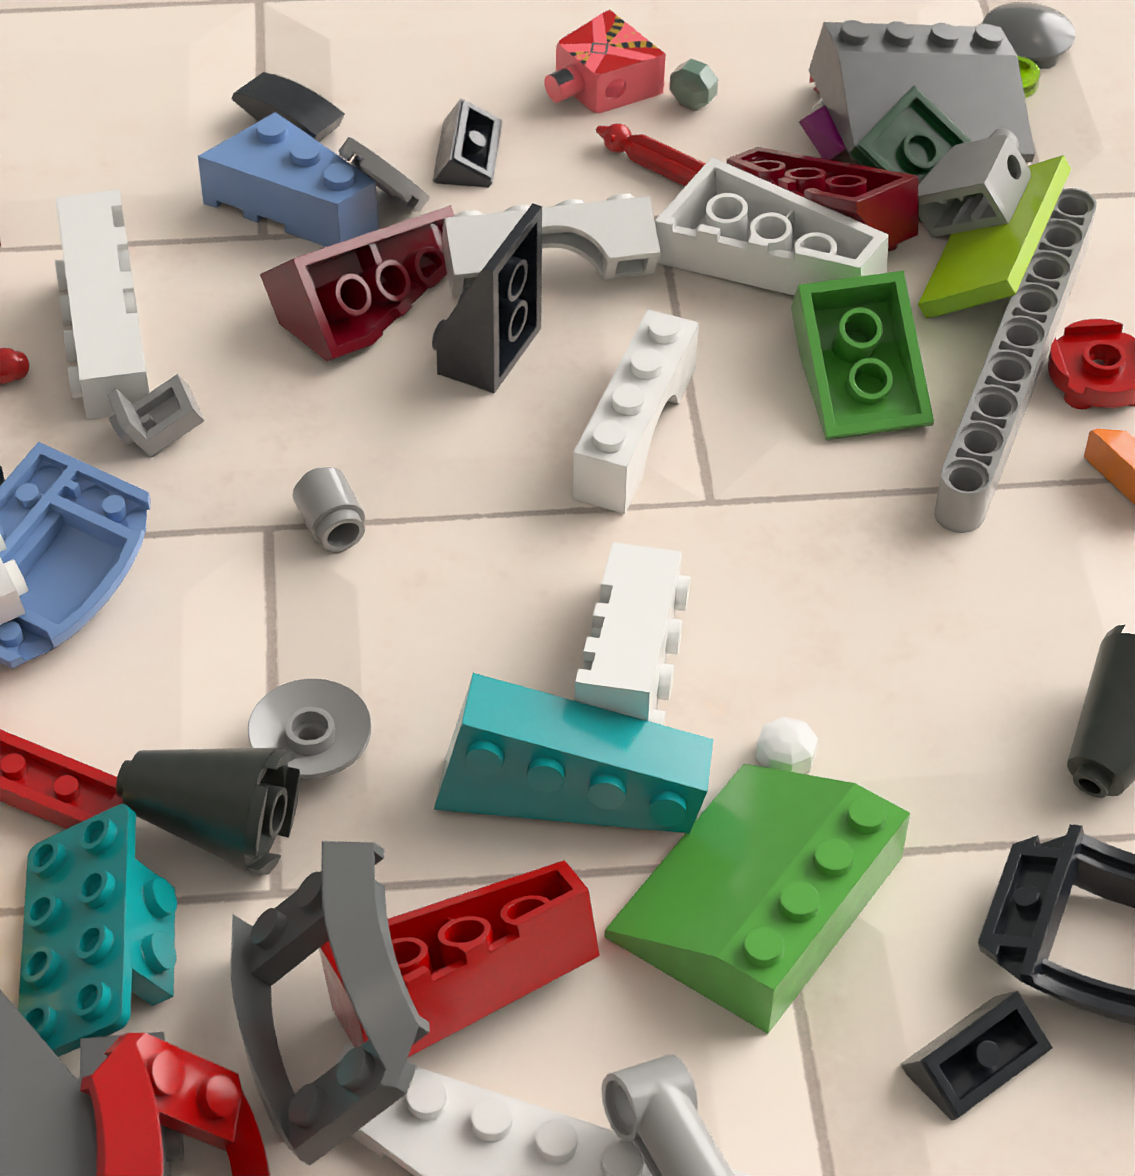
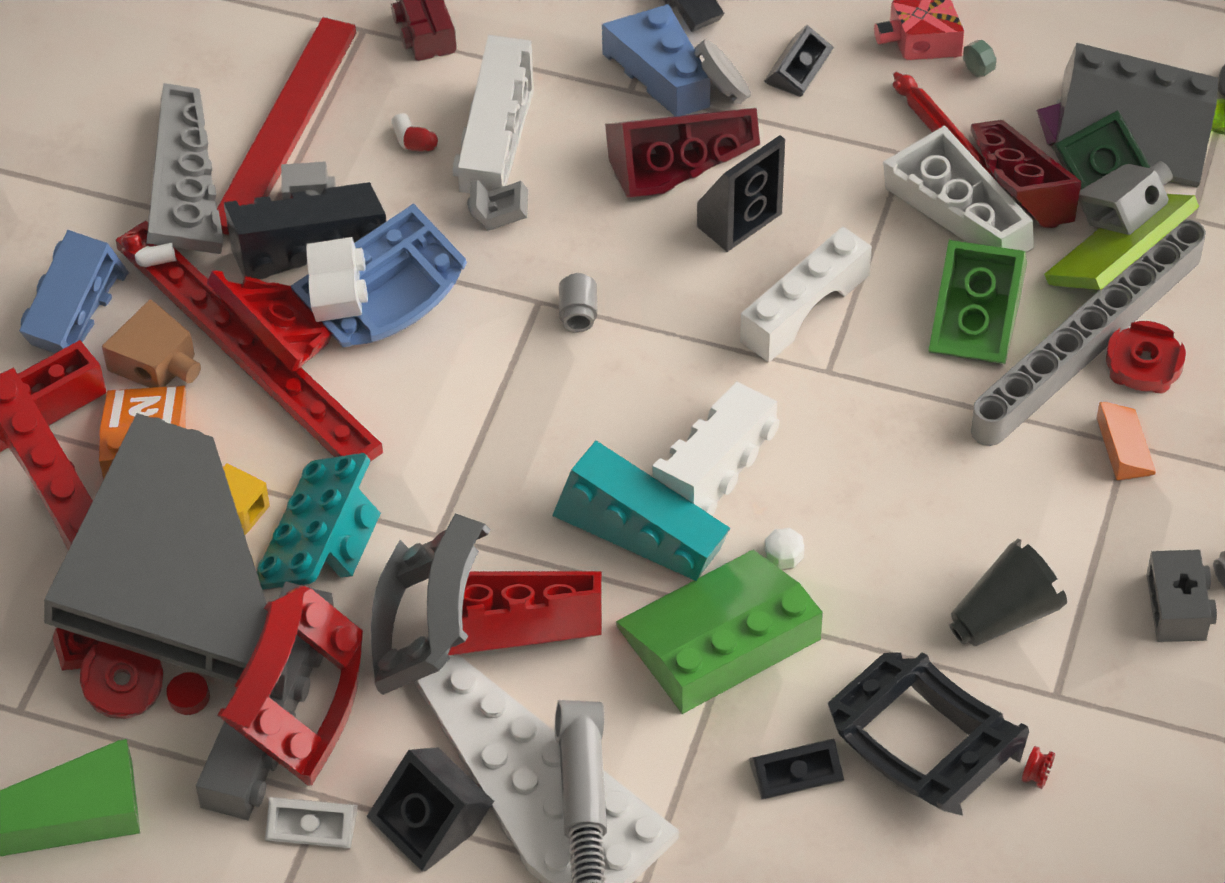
camera: 25 degrees right, 5 degrees up
(216, 799) = (423, 469): pearl dark grey cone -> none
(312, 711) = (498, 430): light grey dish -> none
(611, 234) = (854, 160): white arch -> none

